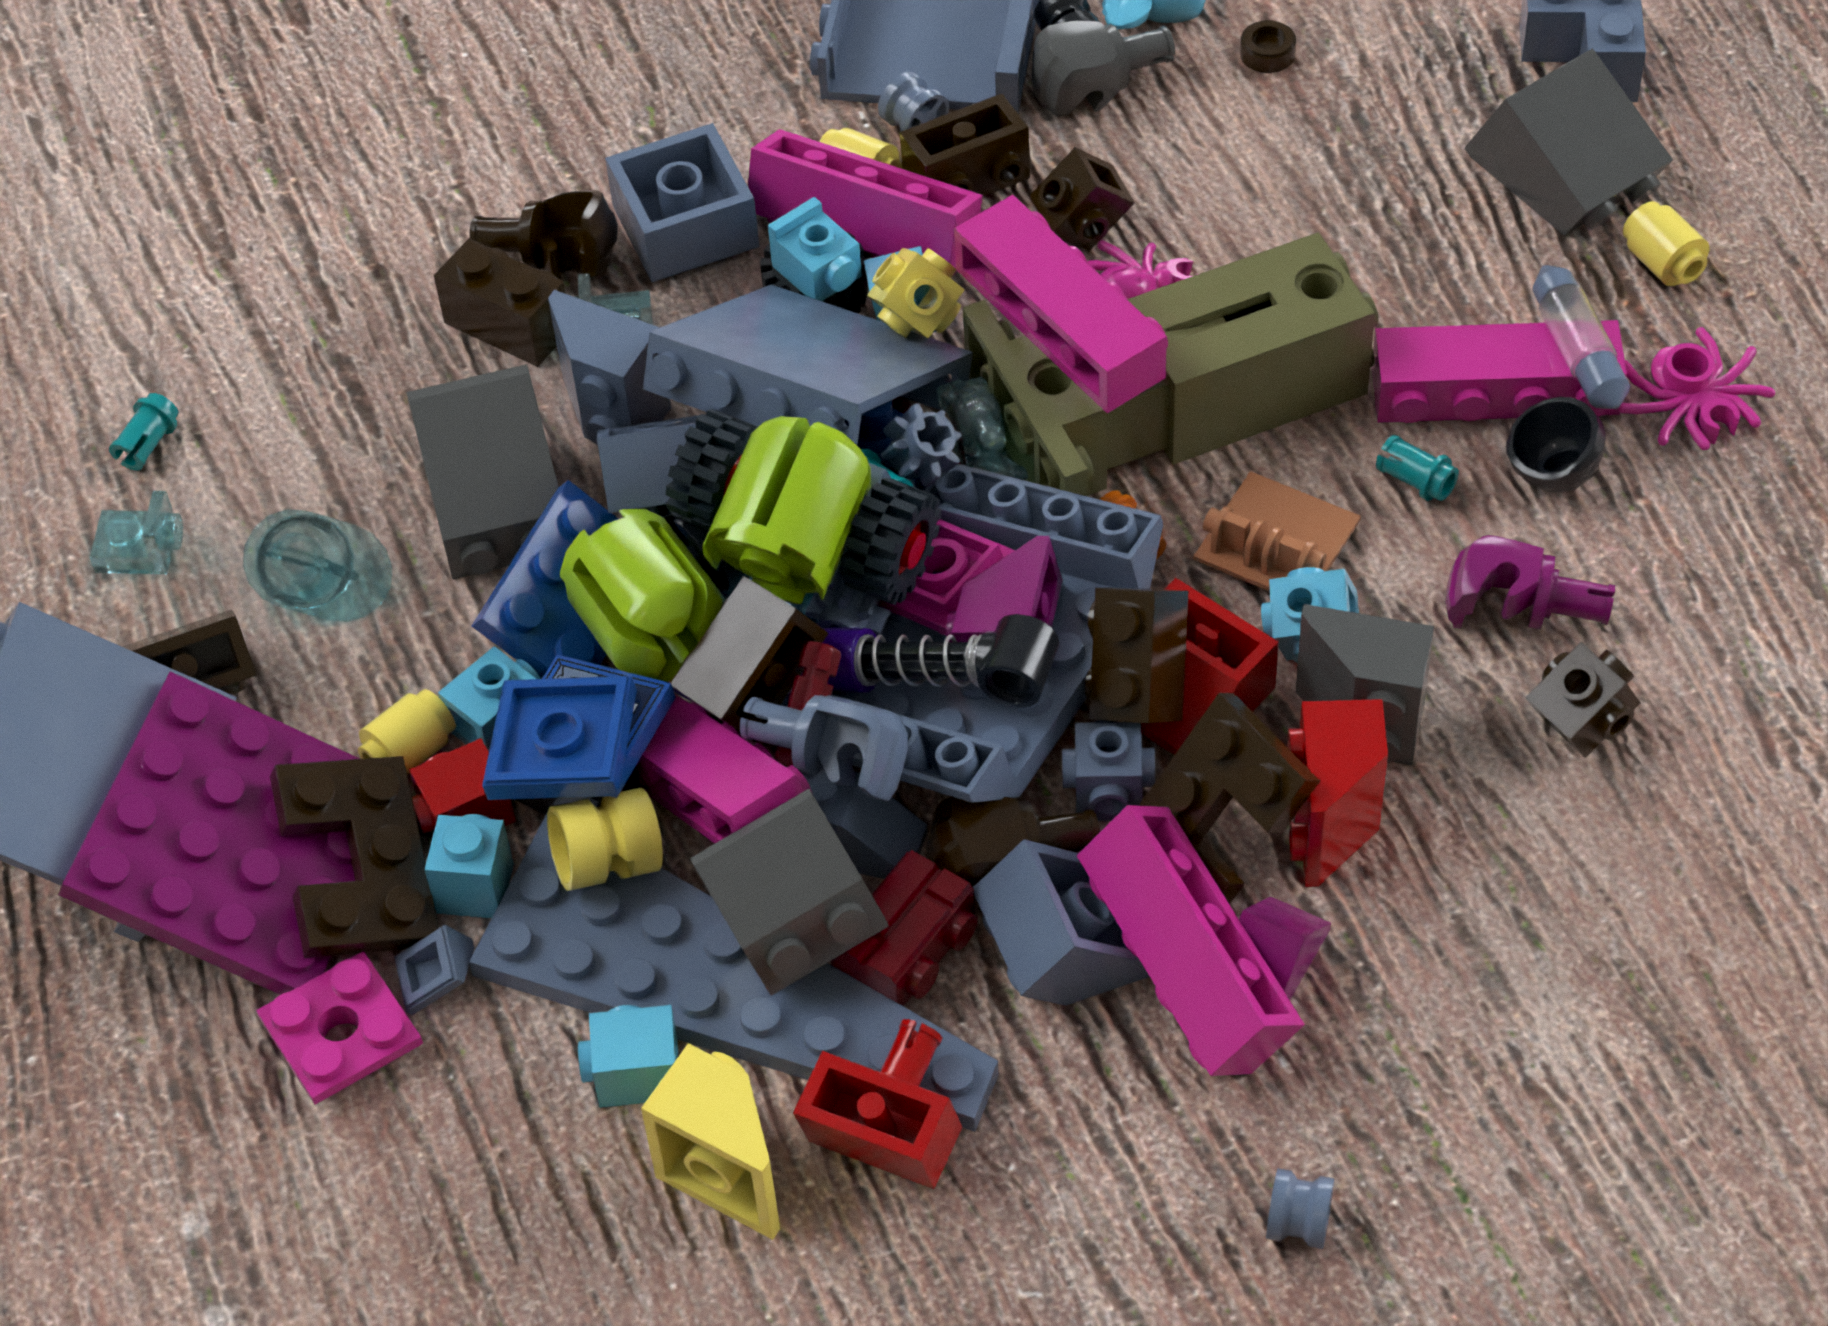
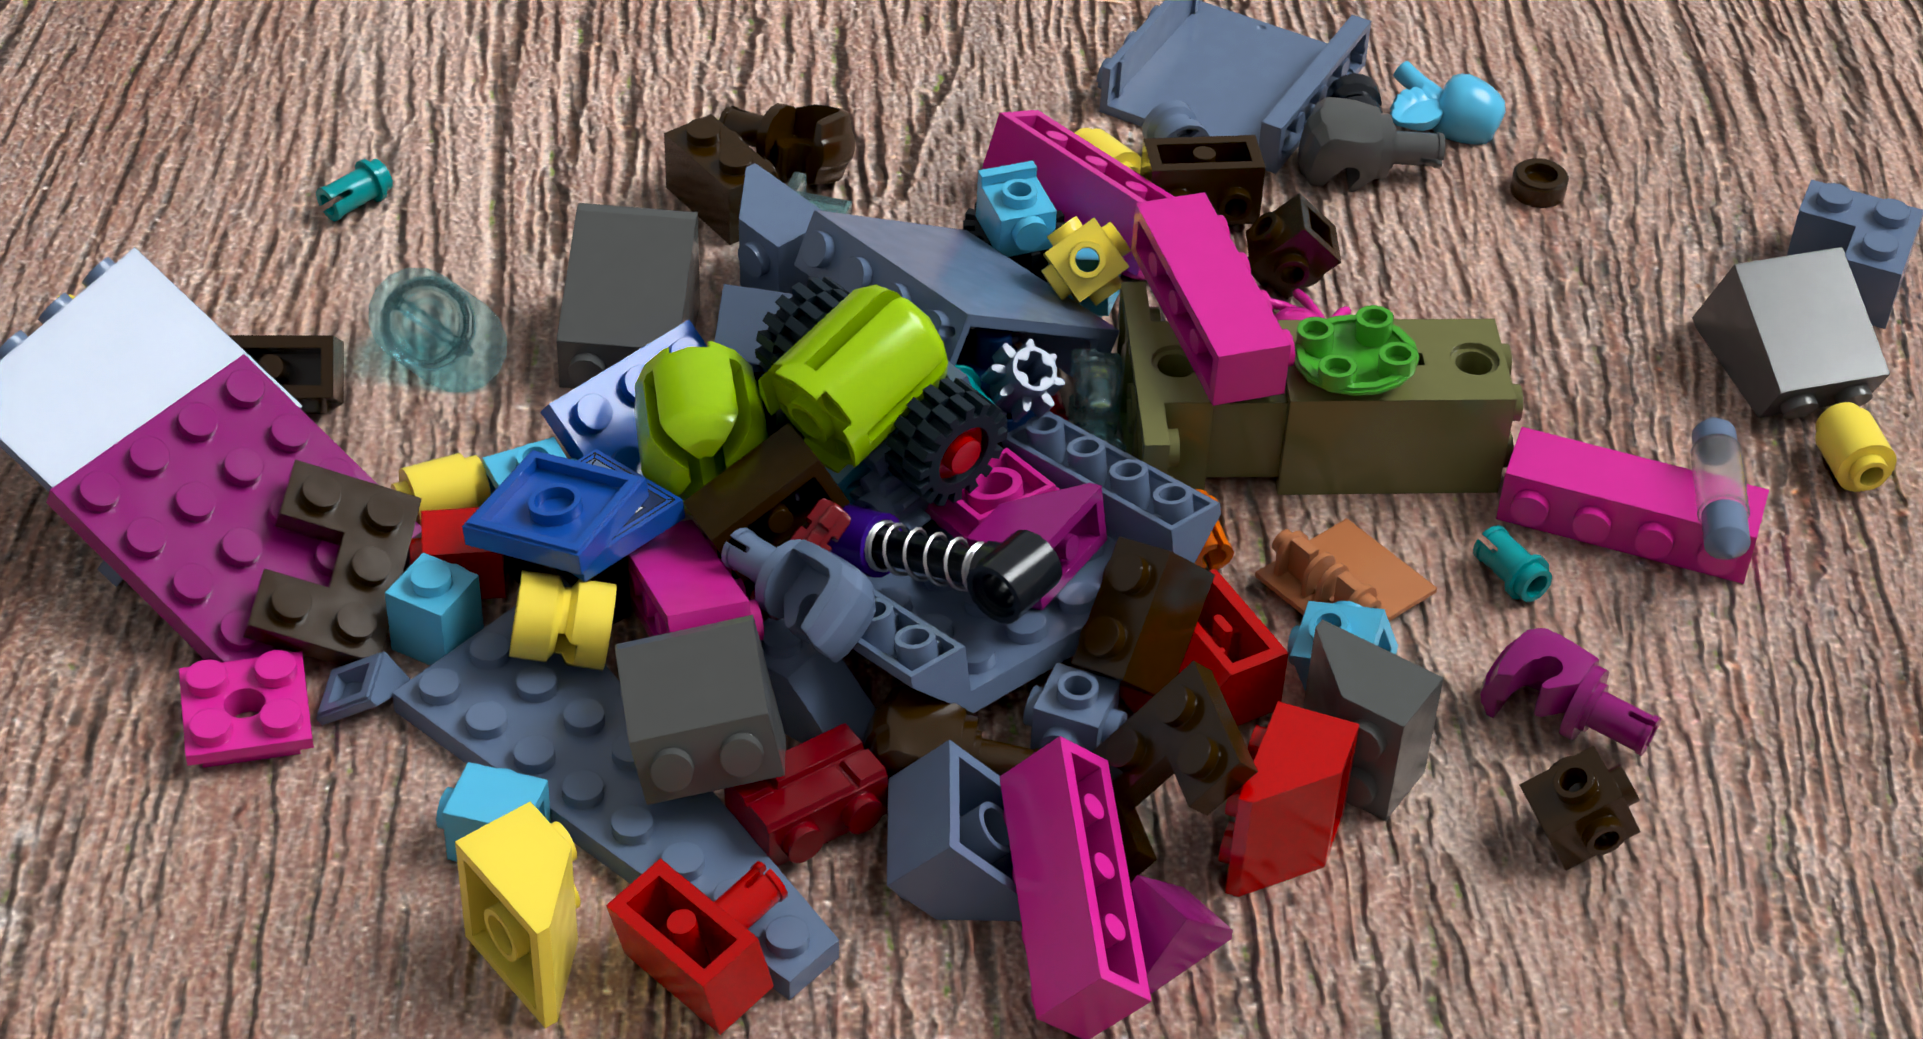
camera: 15 degrees right, 10 degrees down
(137, 539) = (300, 270): clear light blue bracket -> none
(682, 202) = (921, 145): sand blue brick -> none
(1217, 316) = (1355, 352): none -> bright green dish
(1556, 444) = (1660, 581): black piece -> none
(1691, 383) = (1824, 576): dark pink animal -> none

